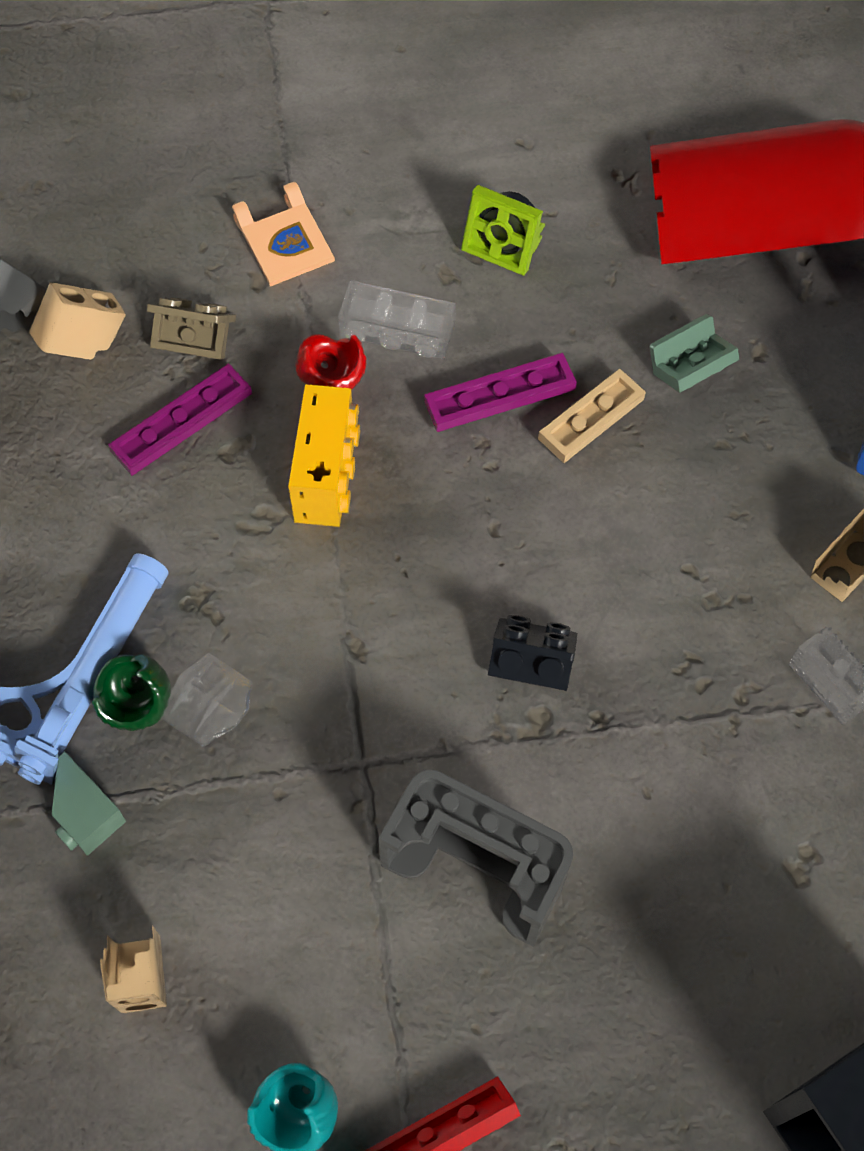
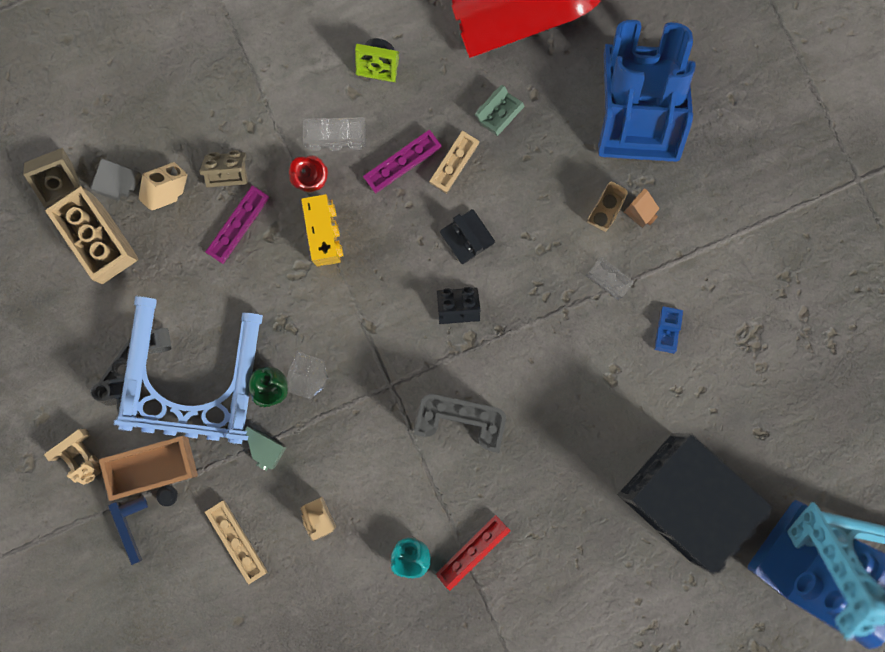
camera: 15 degrees left, 20 degrees up
(286, 241) = (257, 97): light nougat flag -> none
(581, 538) = (467, 236): none -> black bracket

